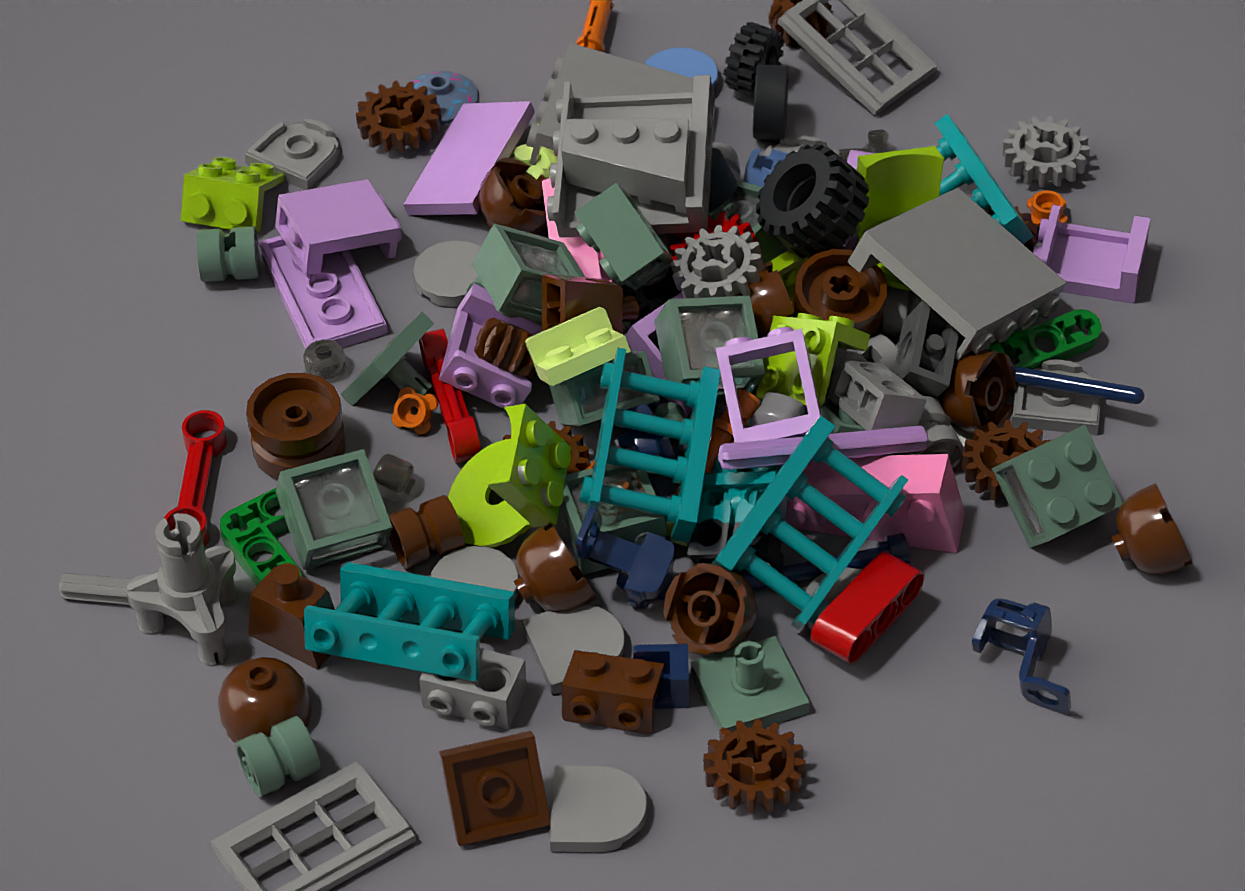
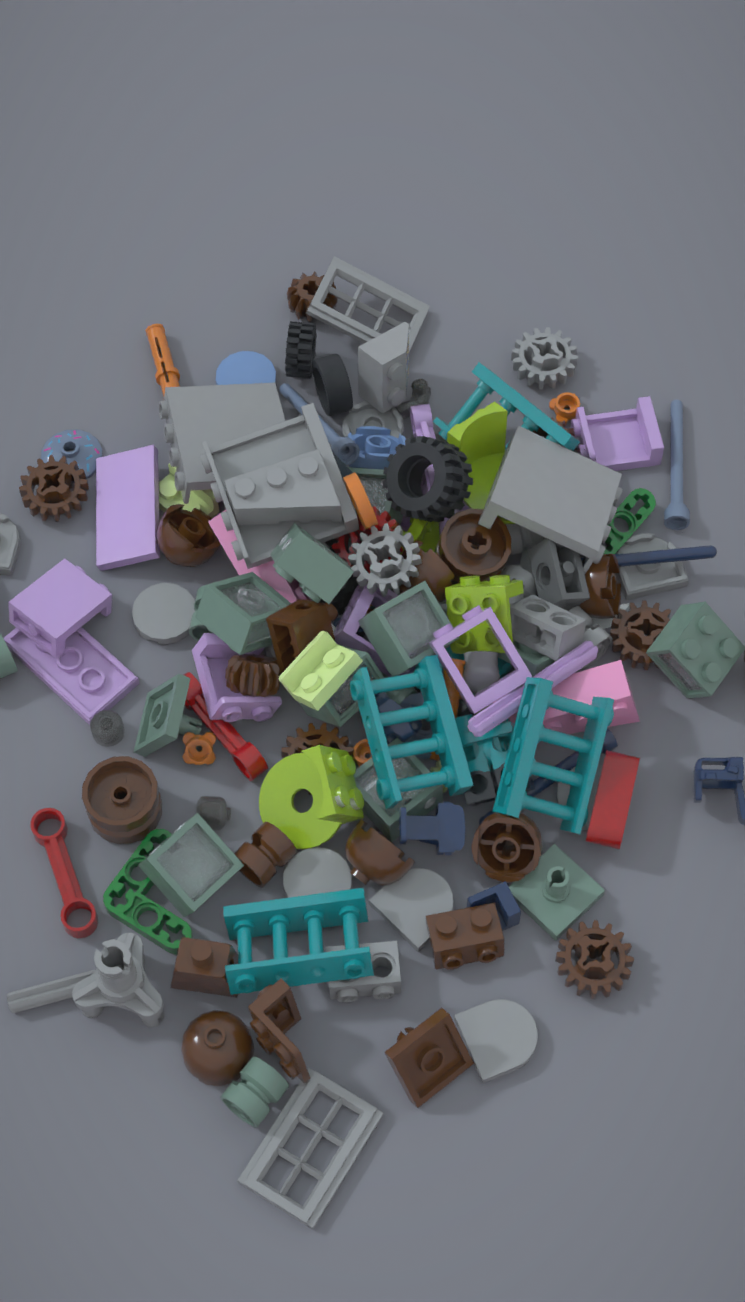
camera: 25 degrees left, 15 degrees up
(343, 691) = (272, 1016): none -> reddish brown bracket
(714, 193) = (360, 500): none -> orange piece
(737, 152) = (342, 447): none -> sand blue piece
(842, 98) = (385, 368): none -> light grey slope
(1122, 352) = (676, 514): none -> sand blue piece

